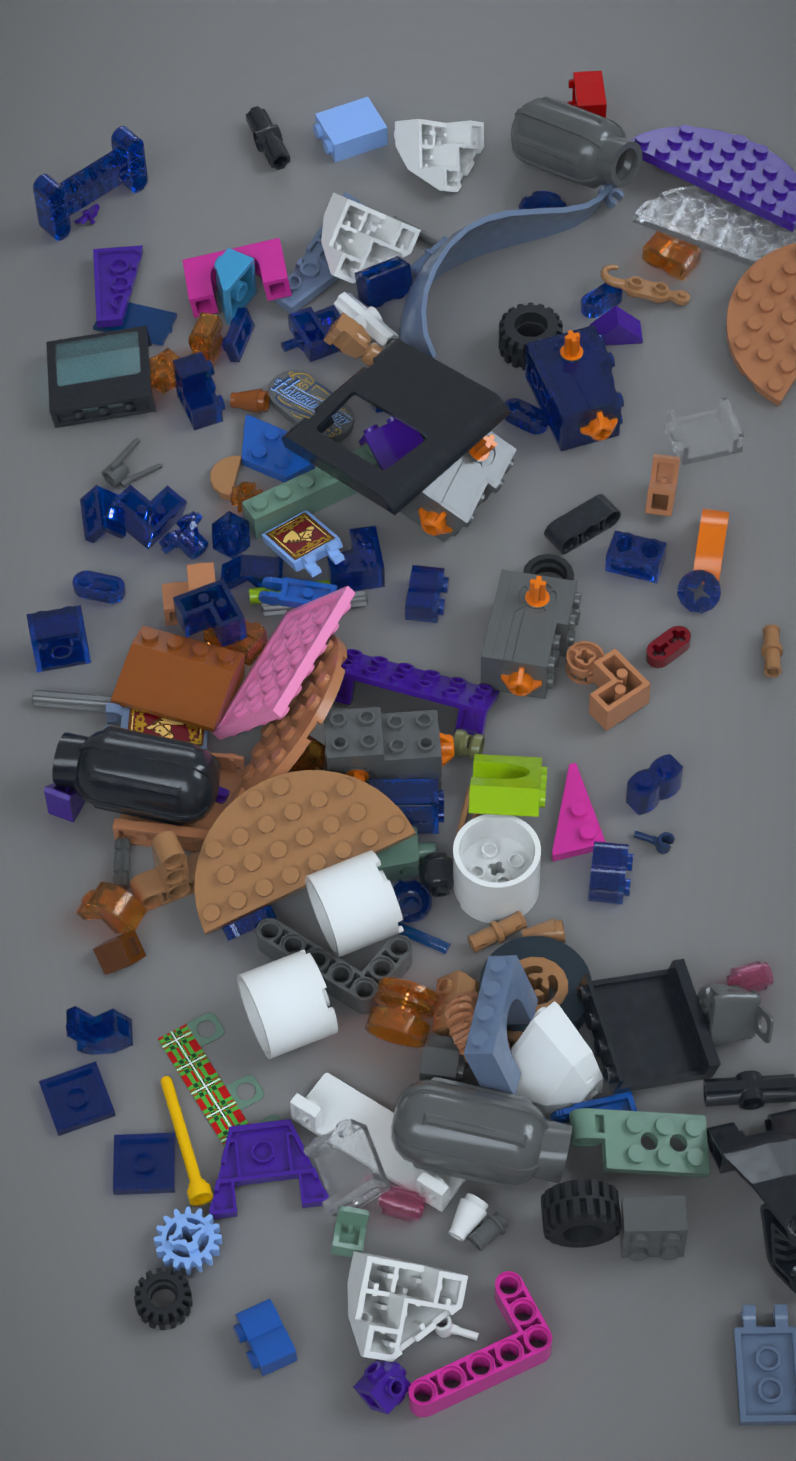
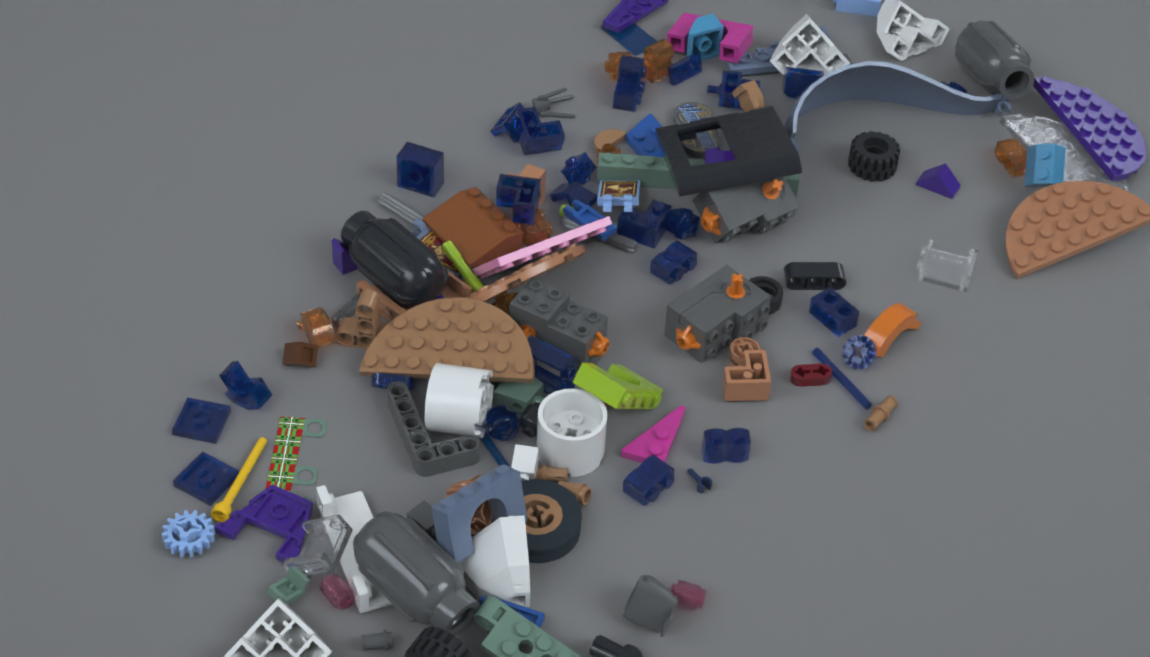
camera: 30 degrees right, 10 degrees down
(99, 376) = (575, 49): panel -> none
(100, 587) = (474, 158): clear blue plate -> none
(157, 1282) = (144, 546): black tyre -> none
(186, 537) = (549, 156): clear blue plate -> none
(194, 729) = (456, 258): none -> lime piece
(251, 400) = (662, 108): dark orange cone -> none
(265, 1338) = (181, 615): blue brick -> none
(287, 1004) = (364, 432): white brick -> none
(367, 317) = (773, 96): white piece -> none
(399, 539) = (682, 223): none -> clear blue brick
(401, 1013) = (437, 476): clear orange wheel -> none
(468, 744) = (620, 355): olive wheel -> none
(468, 1215) = (371, 624): white cone -> none
(471, 699) = (643, 327): dark purple bracket -> none
(478, 935) = (526, 461): none -> white brick
(526, 415) = (828, 201): clear blue beam -> none
(575, 386) = (878, 195): clear blue piece -> none
(588, 92) = (1033, 41): red container -> none
(601, 299) = (953, 160): clear blue beam -> none
(641, 288) = (974, 164): medium nougat piece -> none
(648, 1029) = (586, 582): black panel -> none
(663, 485) = (889, 282): nougat brick -> none
(701, 632) = (850, 387): none -> clear blue bar
(718, 253) = (1044, 165): none -> dark azure slope

